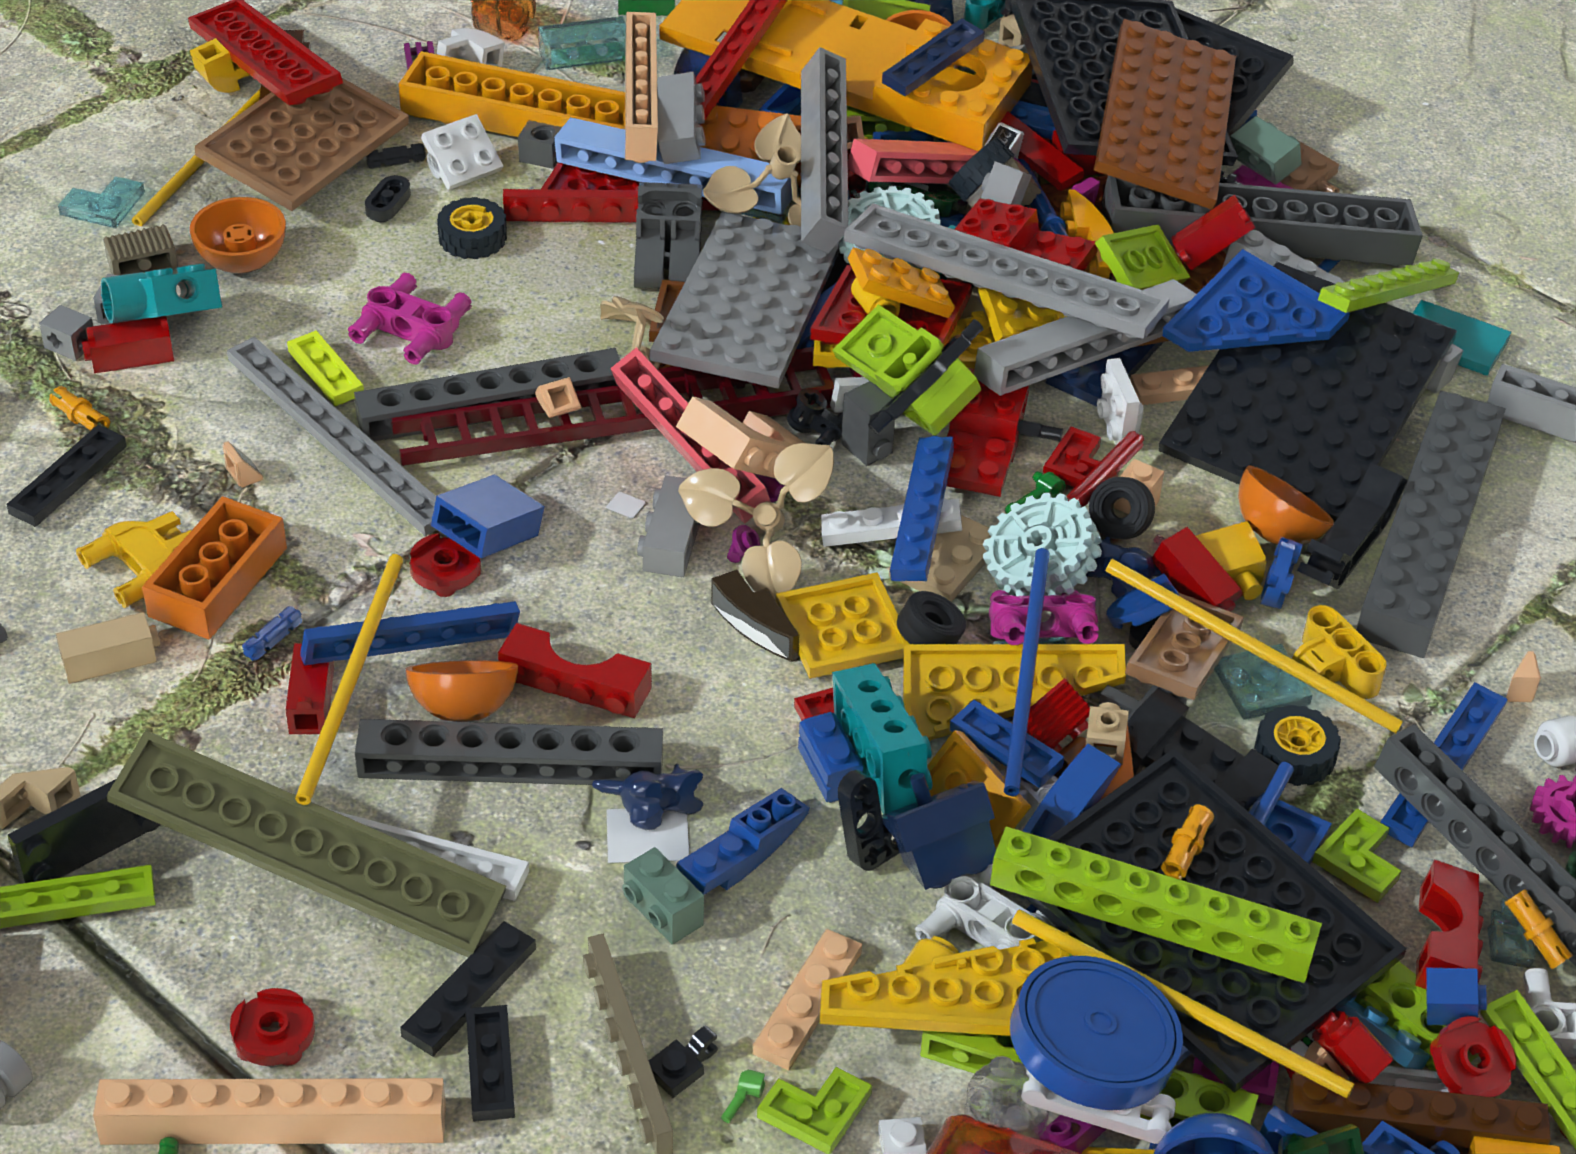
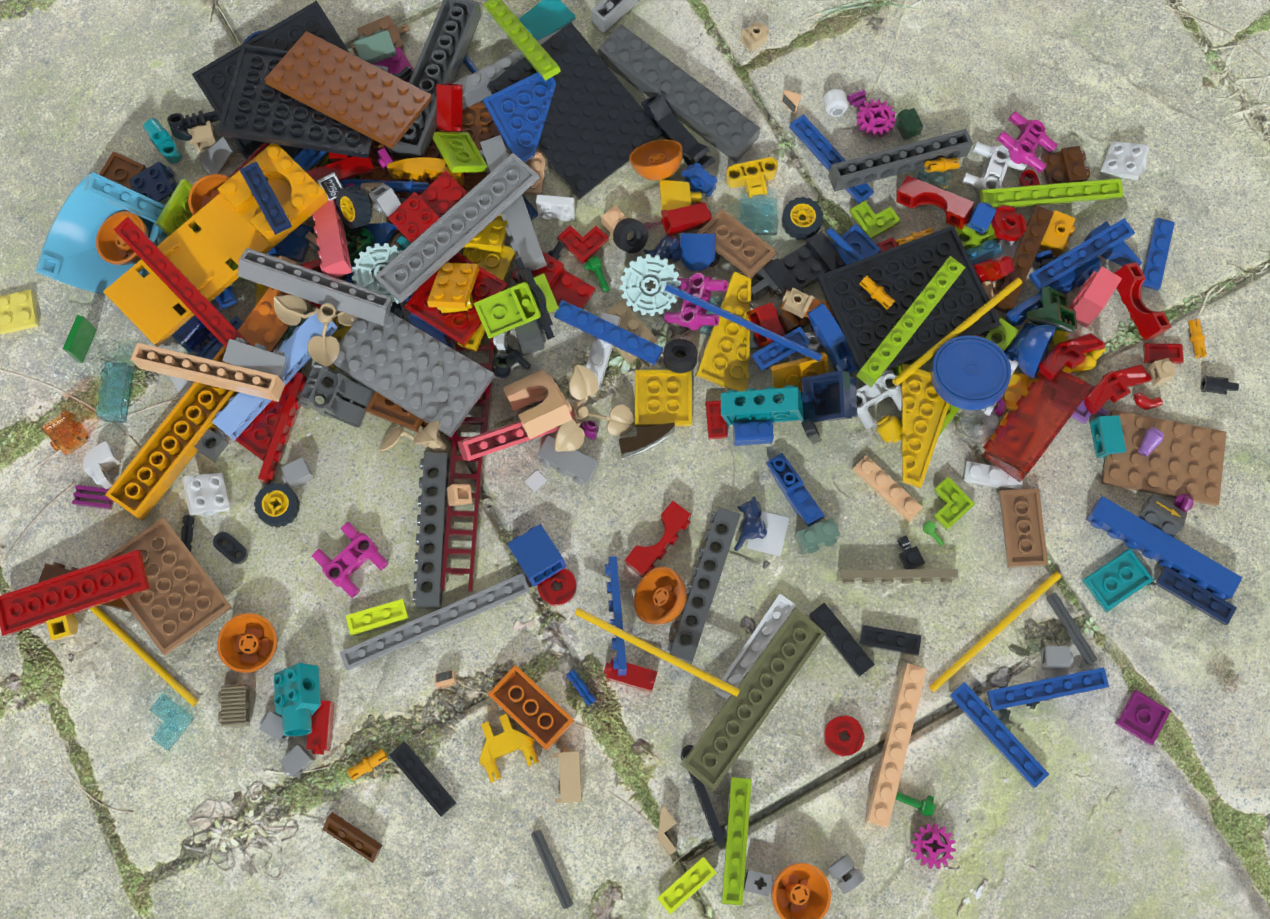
camera: 70 degrees left, 30 degrees up
(531, 235) = (296, 473): none -> light grey brick
(1107, 467) = (602, 235): red axle -> none
(1254, 646) = (745, 214): yellow piece -> none

